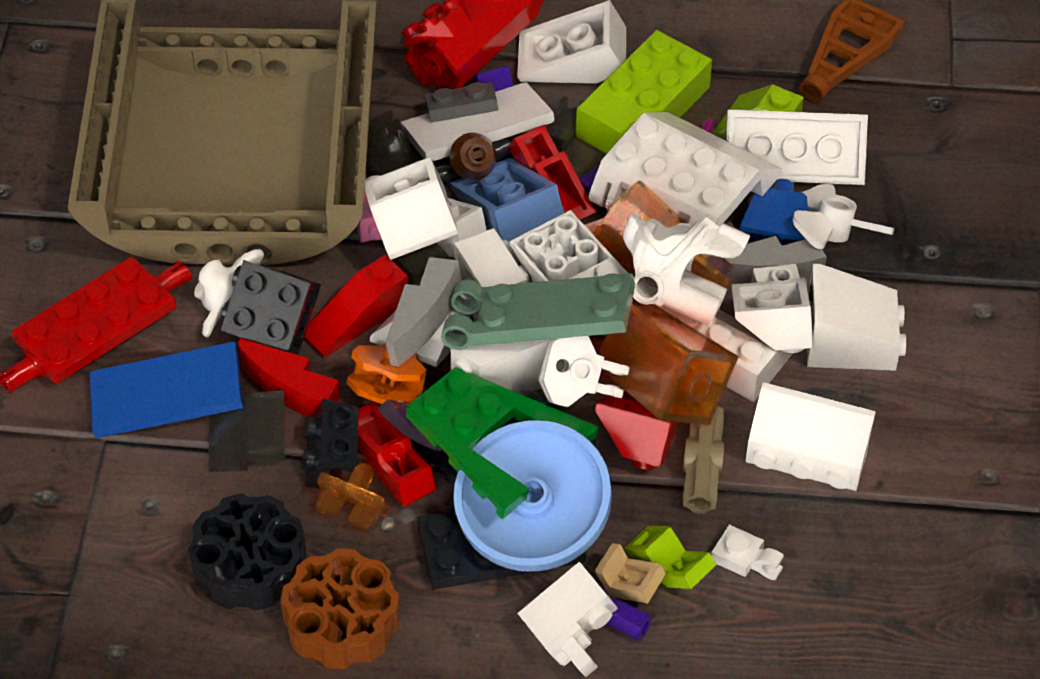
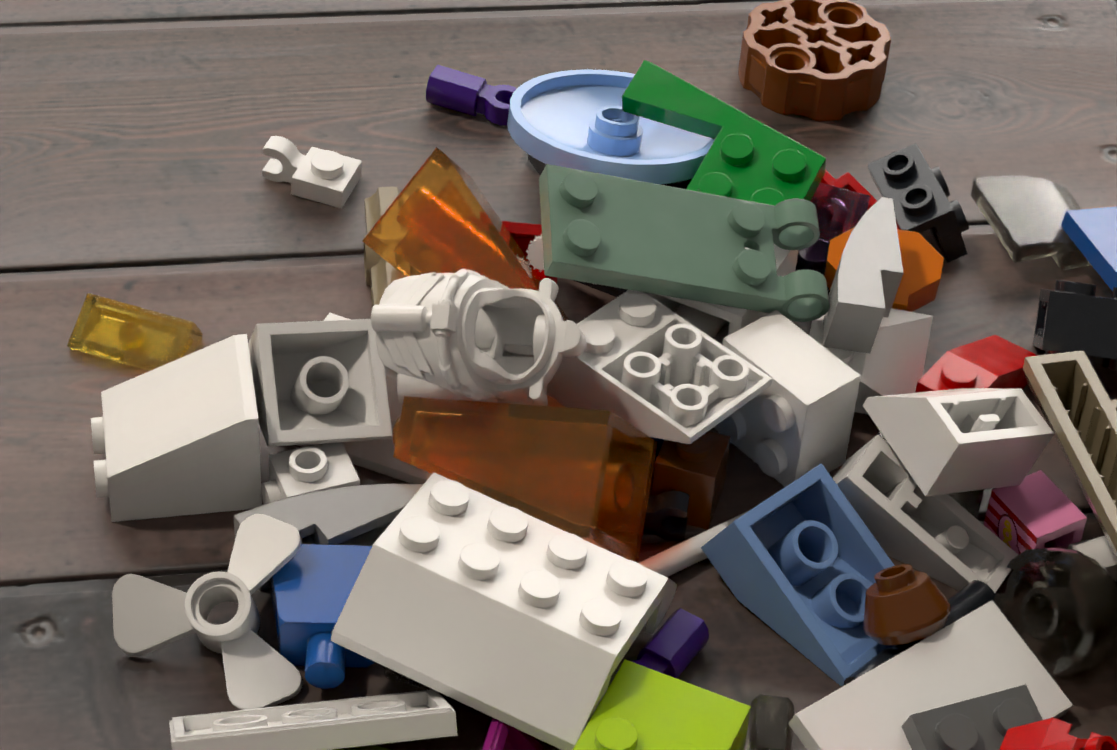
camera: 165 degrees right, 10 degrees down
(234, 577) = (958, 95): black connector -> none
(289, 372) = (1010, 269): red slope -> none
(336, 492) = (846, 146): clear orange hips -> none
(540, 155) = (763, 637): red slope -> none
(567, 614) = (523, 49): white hinge -> none
(628, 577) = (462, 122): tan bracket -> none
(662, 546) = (402, 149): lime slope -> none
(810, 436) = (236, 275): white slope -> none
(890, 439) = (132, 334): none -> clear yellow slope

